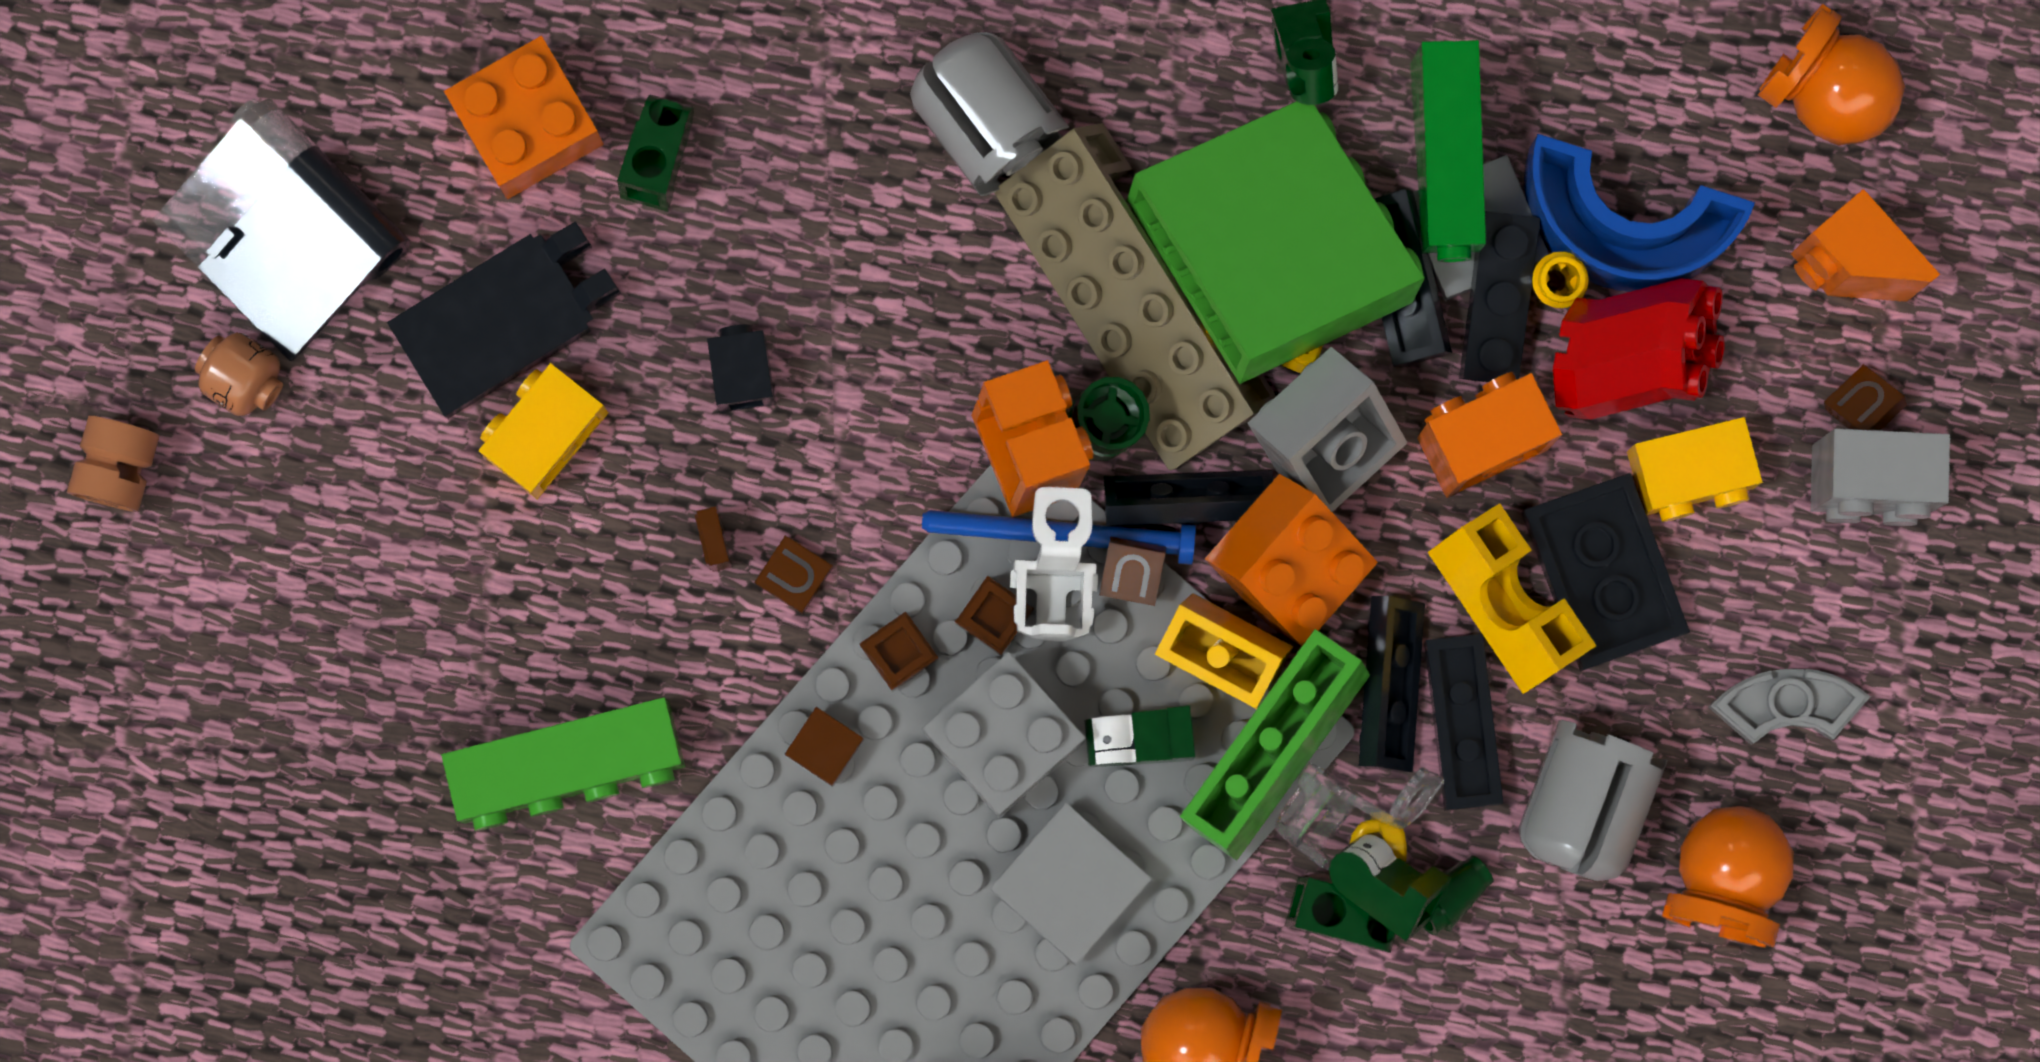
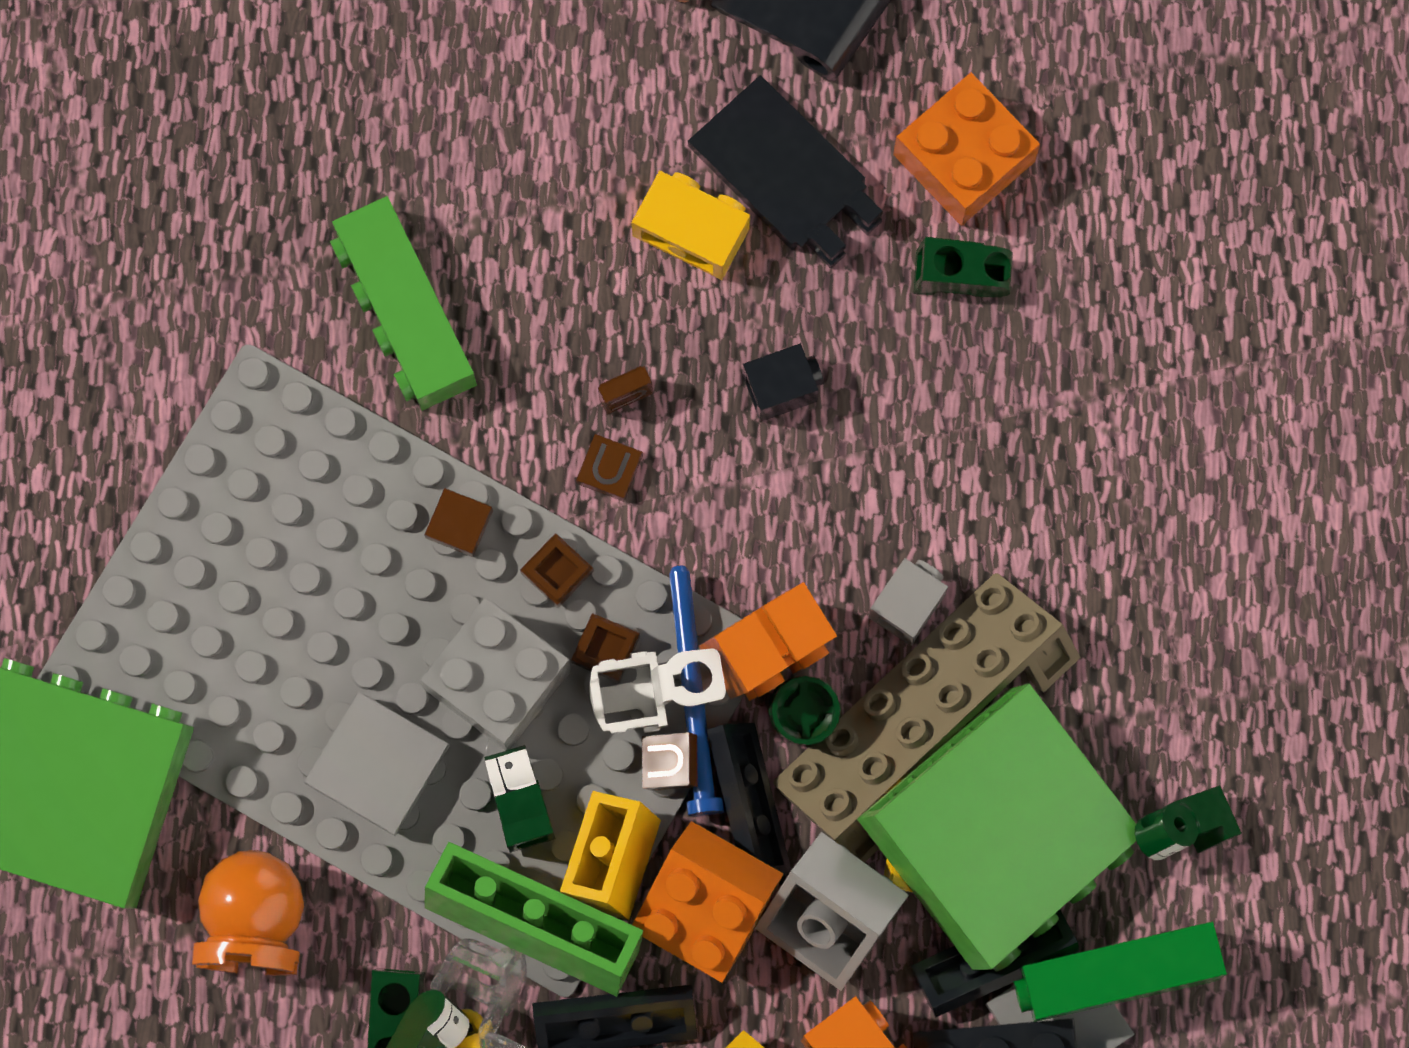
camera: 80 degrees right, 5 degrees down
(985, 109) = (1063, 543): light grey cylinder -> none
(1008, 285) = (909, 600): none -> light grey brick

